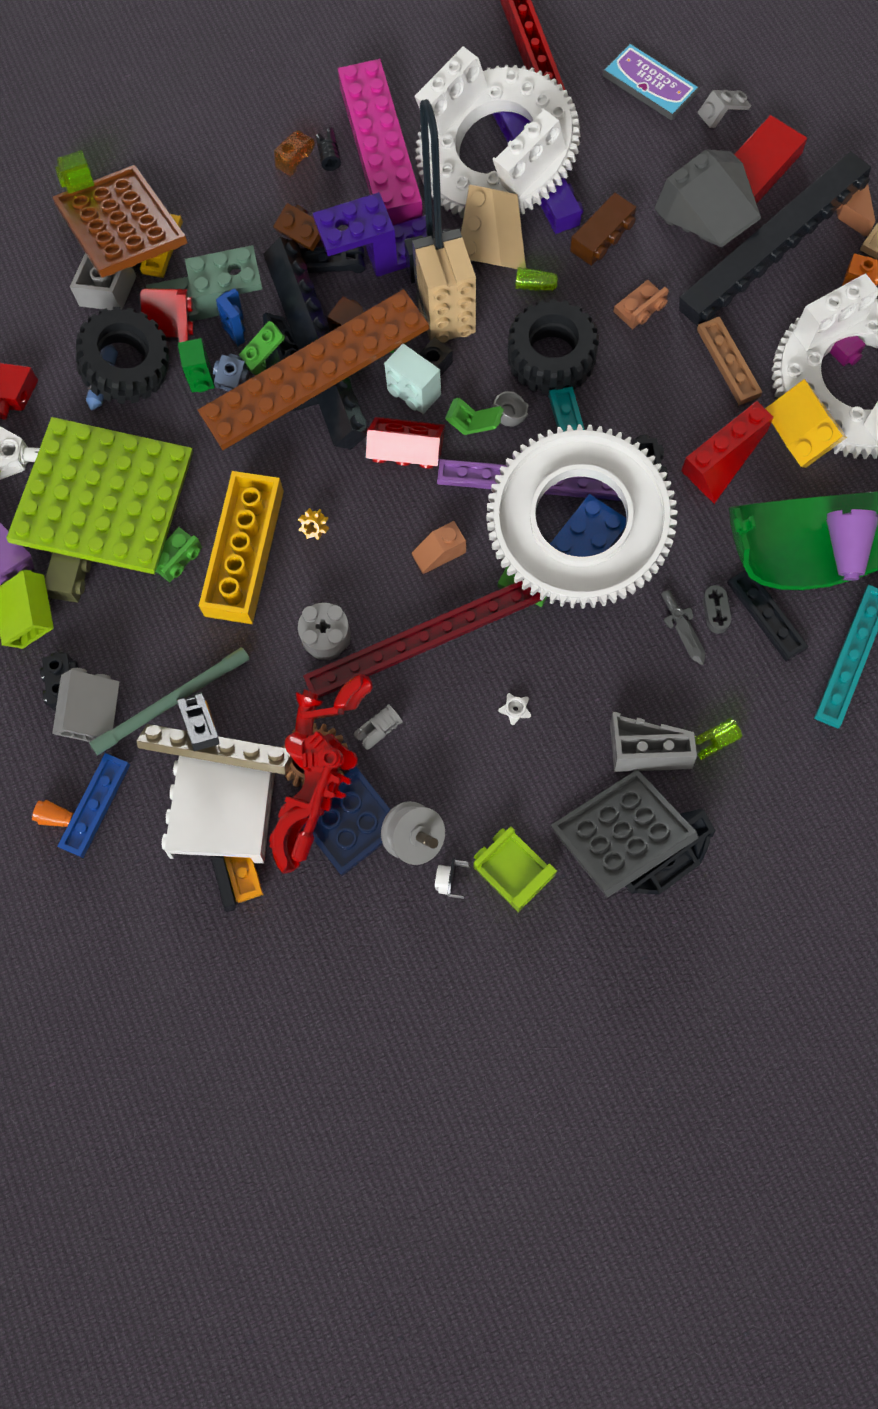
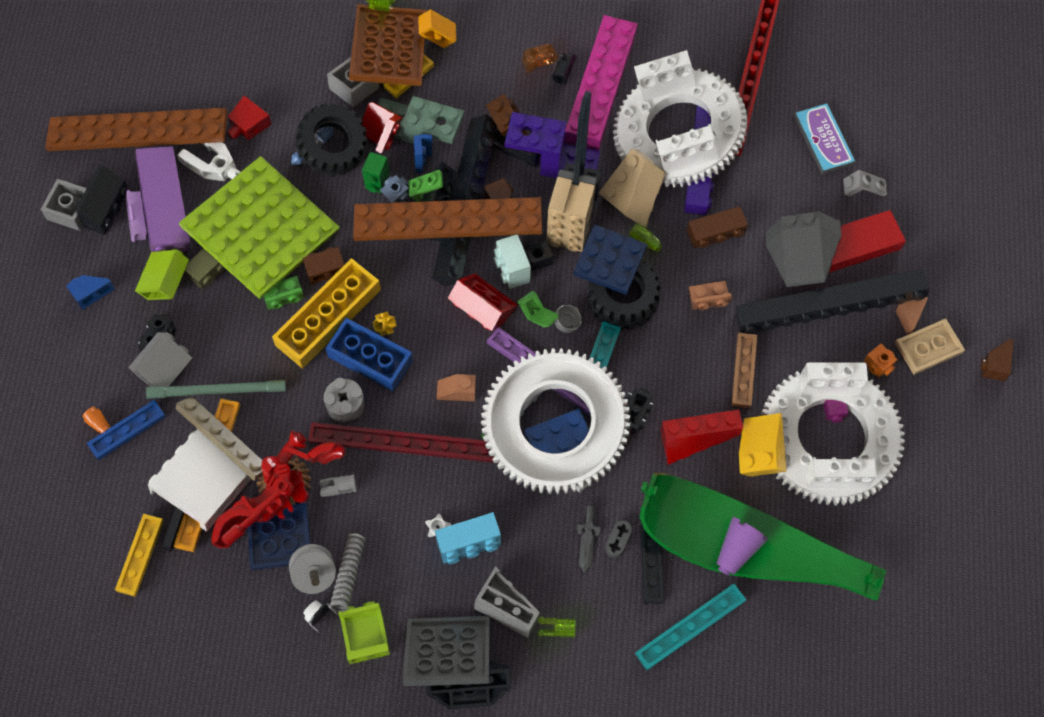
camera: 25 degrees right, 5 degrees down
(162, 176) = (437, 28): none -> light orange brick
(198, 722) = (221, 413): plate -> none
(202, 498) = (323, 265): none -> reddish brown brick
(202, 935) = (139, 555): none -> yellow plate
(319, 565) = (369, 354): none -> blue brick
(454, 814) = (347, 572): none -> light grey piece
(521, 316) = (610, 259): none -> dark blue plate
(563, 699) = (468, 538): none -> medium azure brick

